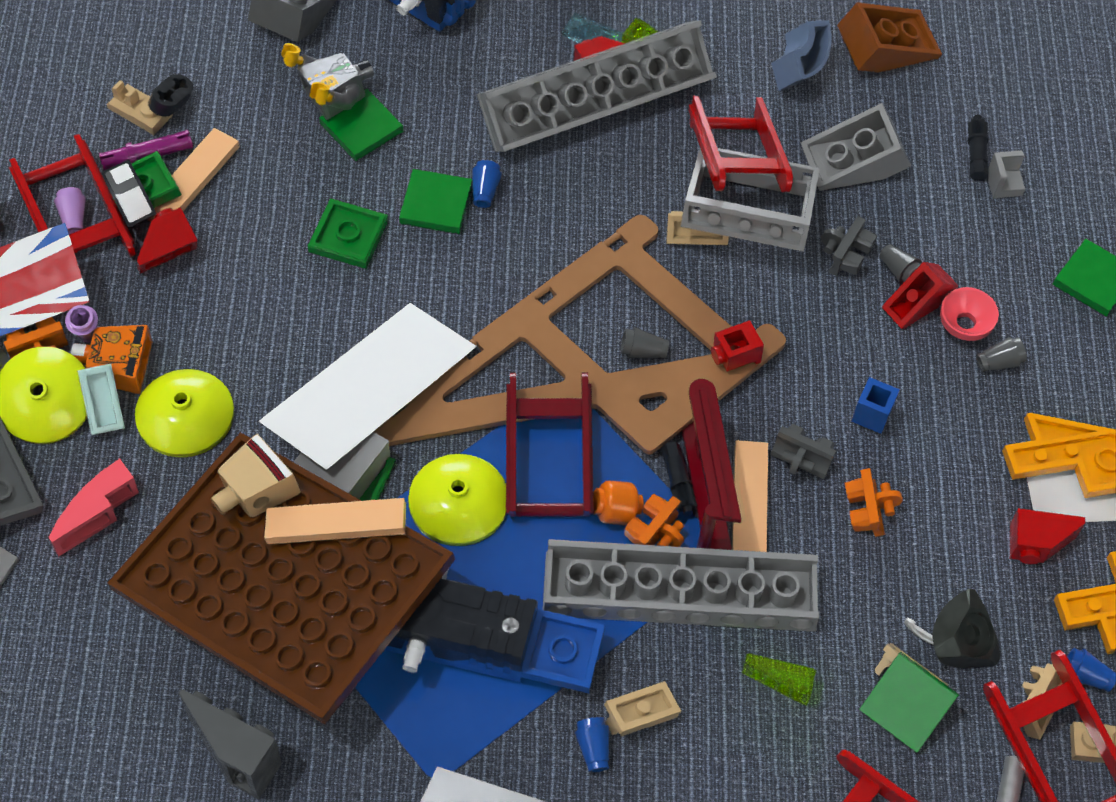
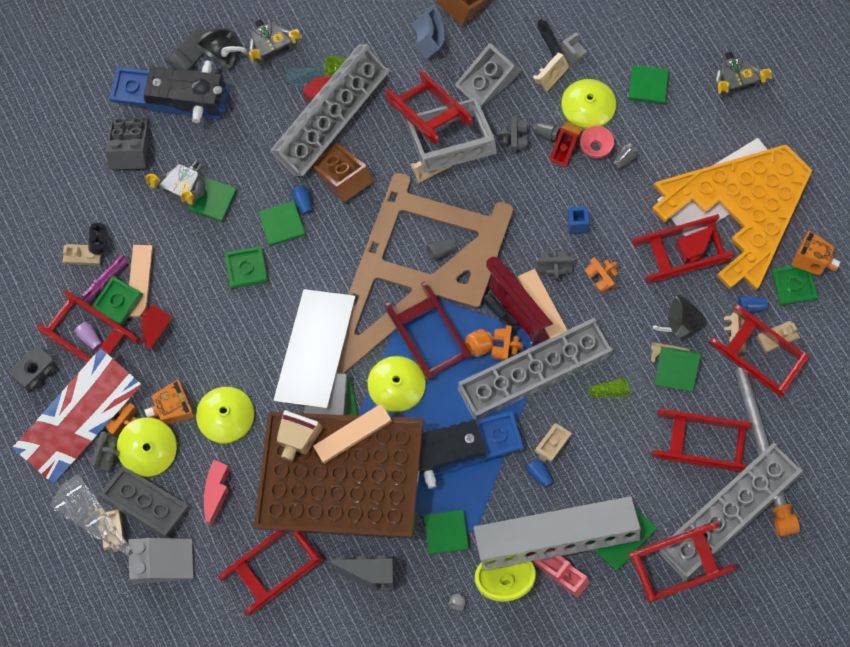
camera: 25 degrees left, 10 degrees up
(56, 663) = (252, 582): none -> red piece
(82, 322) = (142, 391): lavender cone -> none
(101, 399) = (180, 432): light aqua tile -> none
(128, 193) = (117, 310): slope -> none
(393, 755) = (446, 532): none -> green tile
(564, 176) = (342, 172): none -> dark orange slope
(737, 346) = (492, 220): red brick -> none
(956, 190) = (552, 72): none -> tan plate
(975, 550) = (662, 259): none -> red piece
(997, 272) = (586, 112): none -> neon yellow dish

